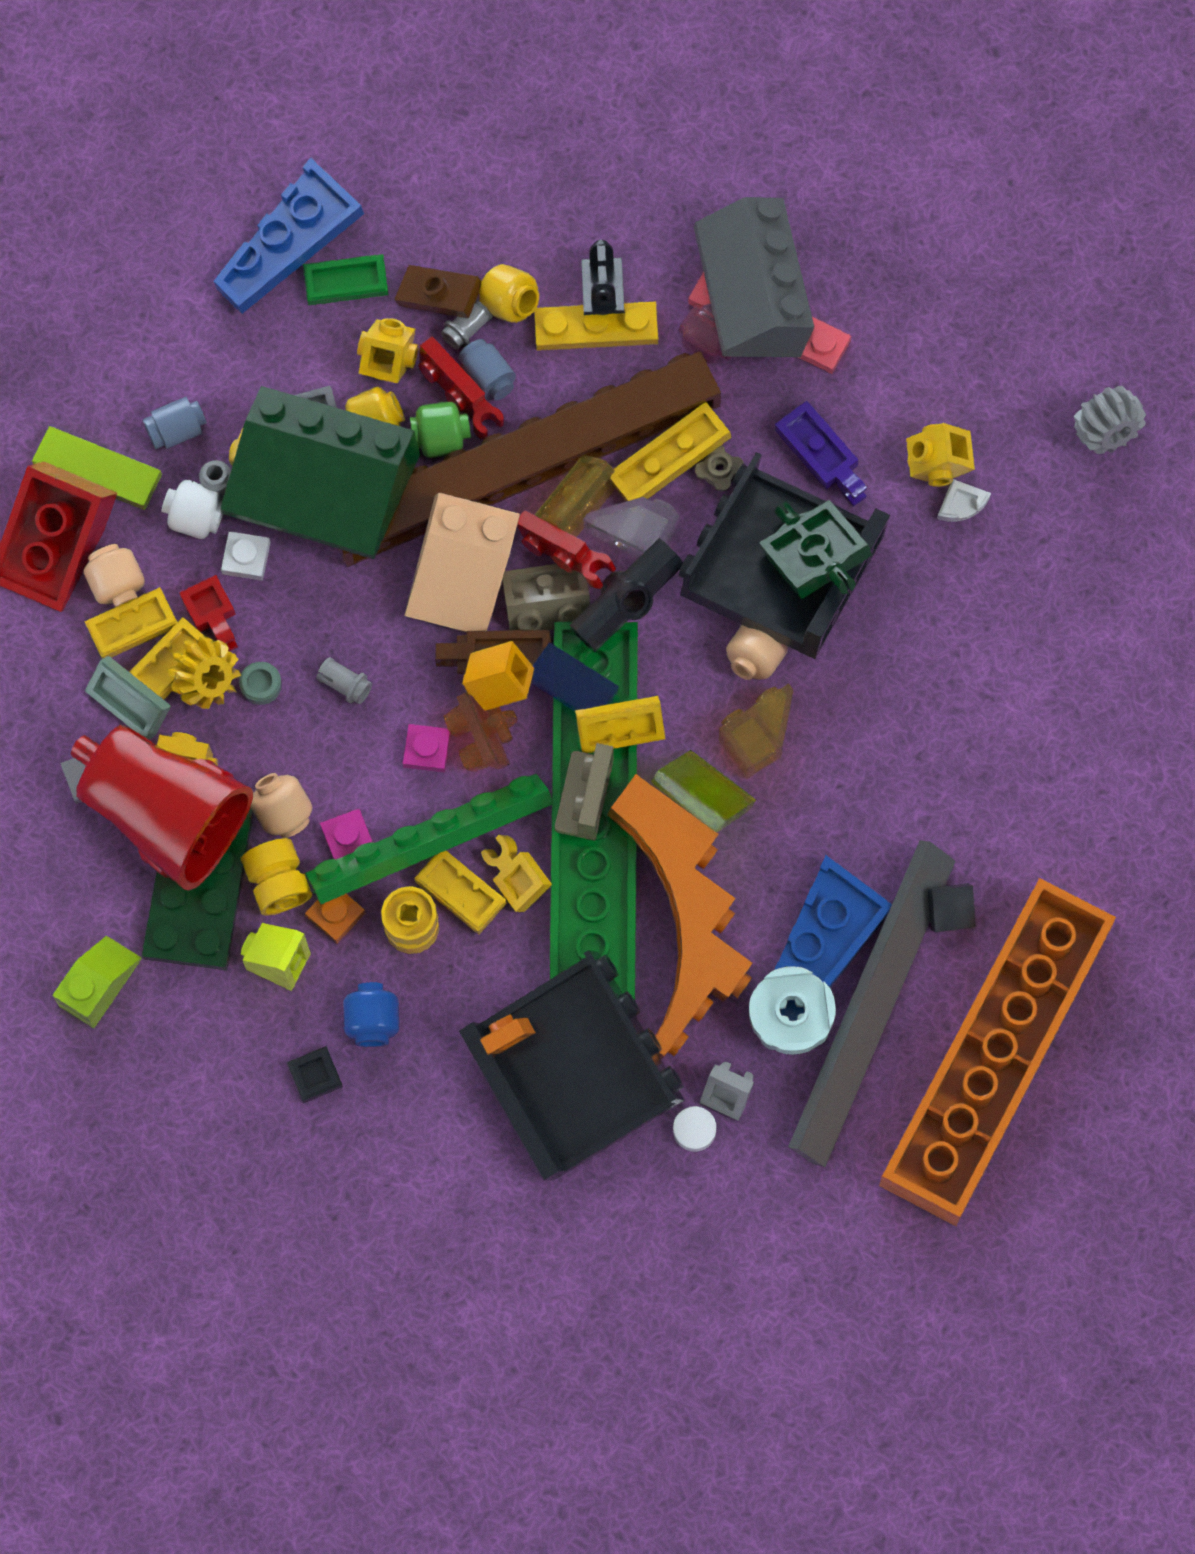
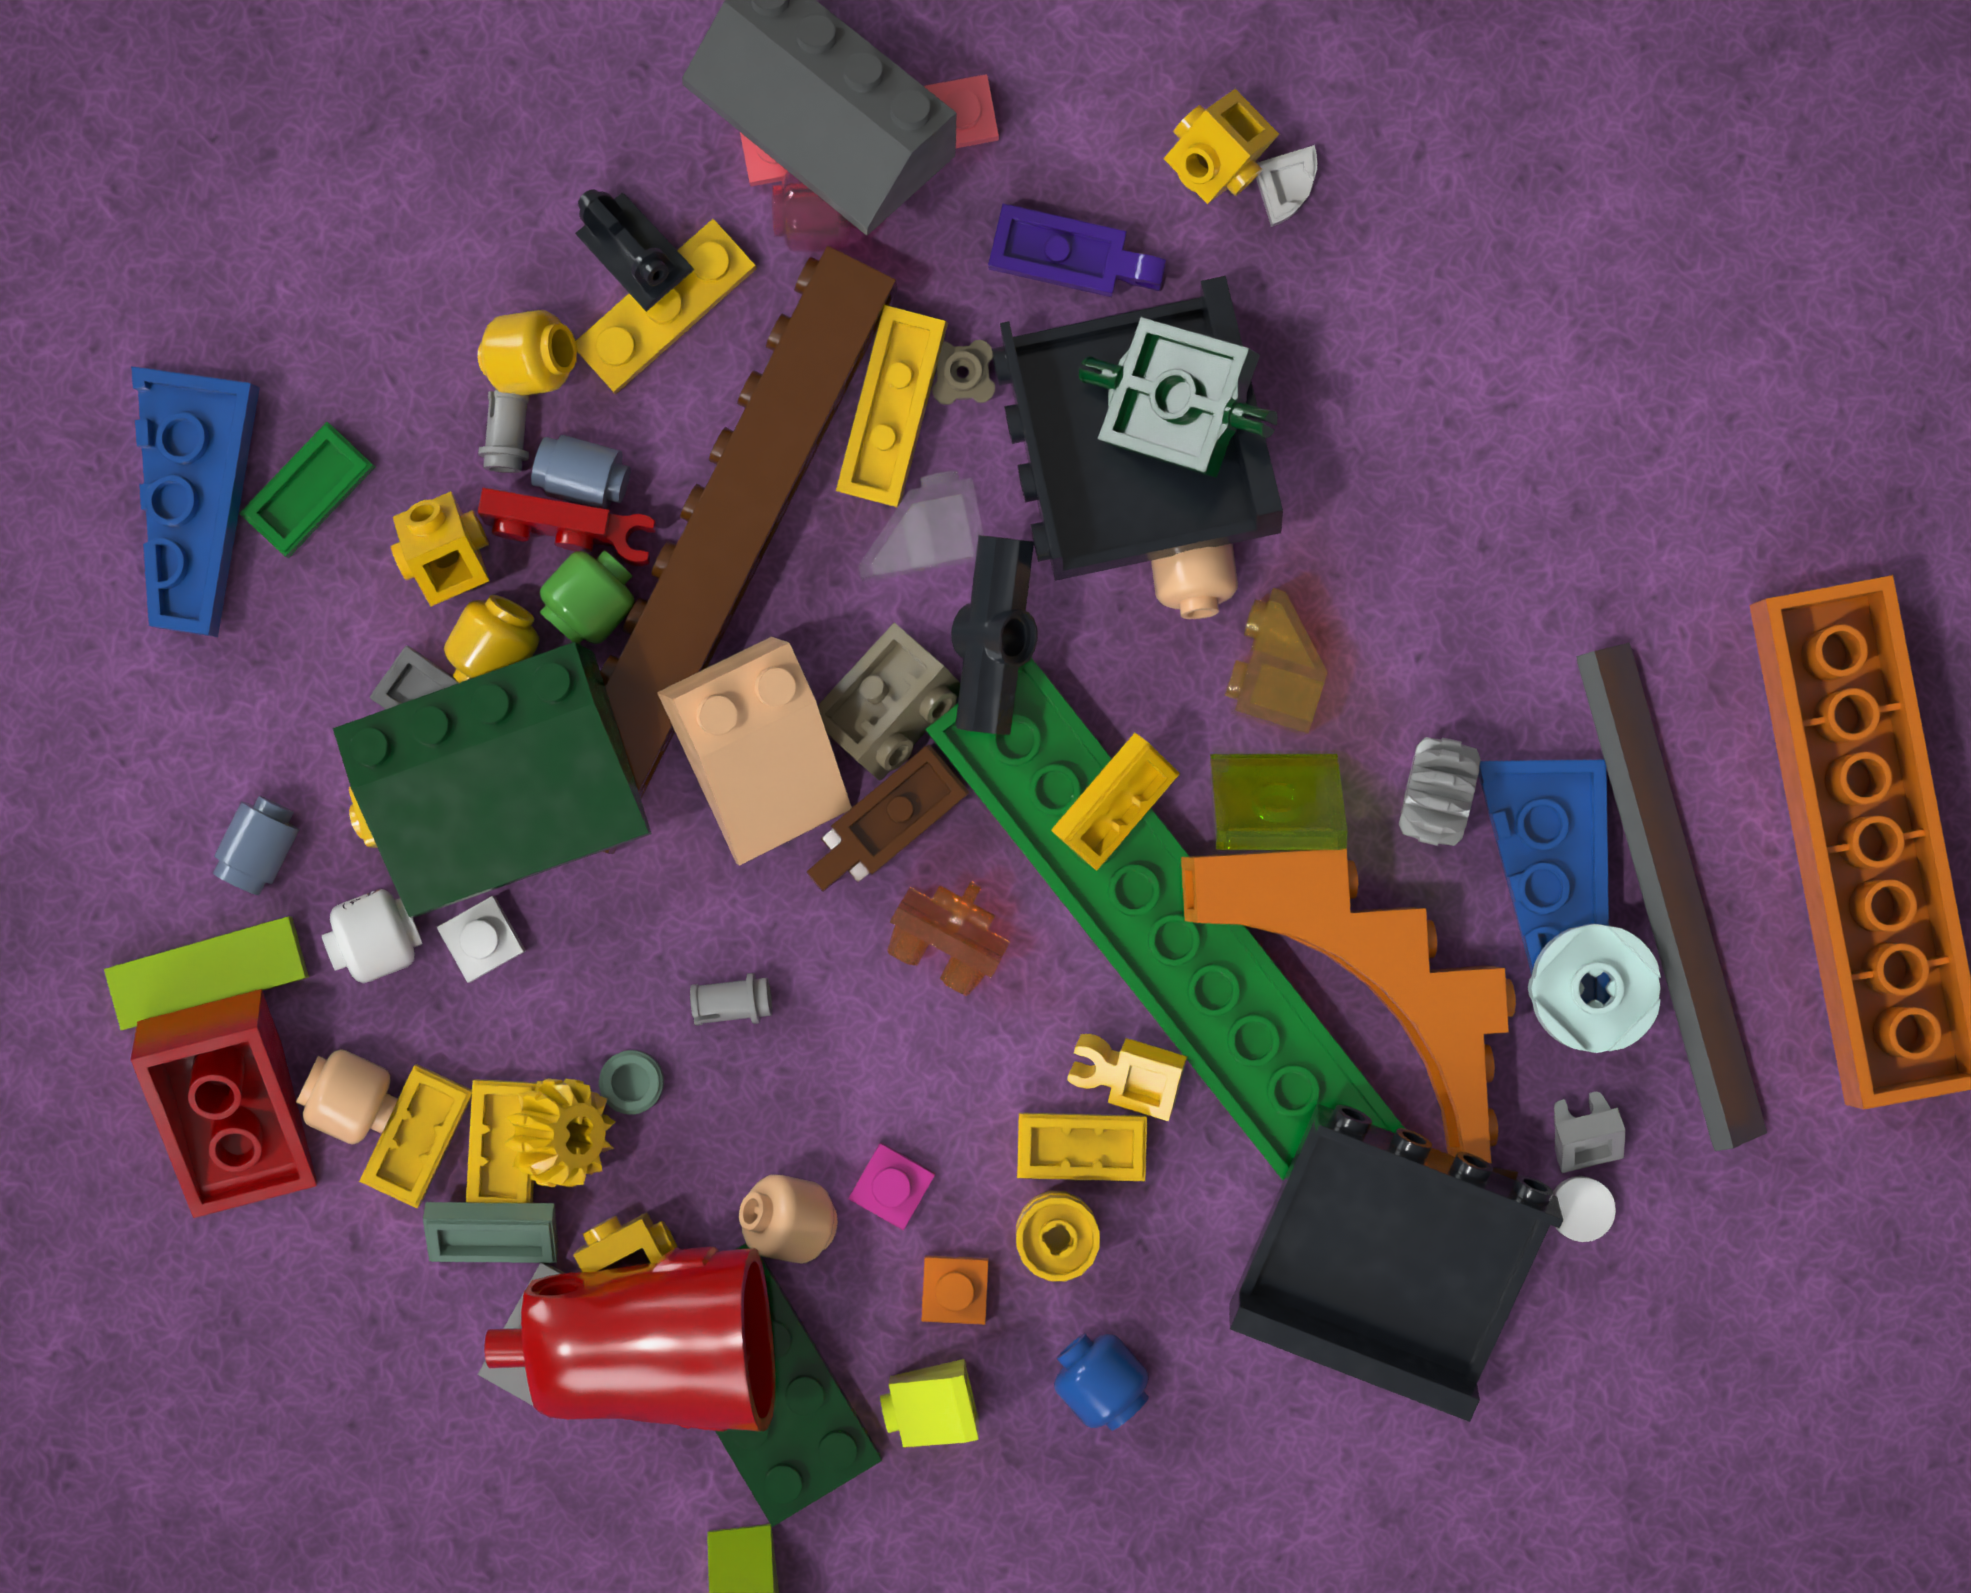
camera: 40 degrees left, 15 degrees up
(210, 608) = (494, 1041): red plate -> none
(215, 476) = (353, 878): light grey pin -> none
(275, 872) = (854, 1309): yellow wheel -> none
(315, 1074) = (1090, 1499): black tile -> none
(418, 842) = (995, 1117): green plate -> none
(426, 748) = (896, 1003): dark pink plate -> none
(438, 291) = (437, 418): reddish brown plate -> none
(498, 675) = (923, 861): light orange brick -> none
(506, 1033) = (1291, 1290): orange plate -> none
(563, 548) = (876, 634): red plate -> none
(571, 680) = (1011, 791): clear blue tile -> none
(579, 493) = (825, 555): clear yellow panel -> none
(585, 792) = (1141, 921): dark tan bracket -> none
(792, 851) = (1439, 791): none -> light grey gear
(951, 907) = (1674, 706): black tile -> none

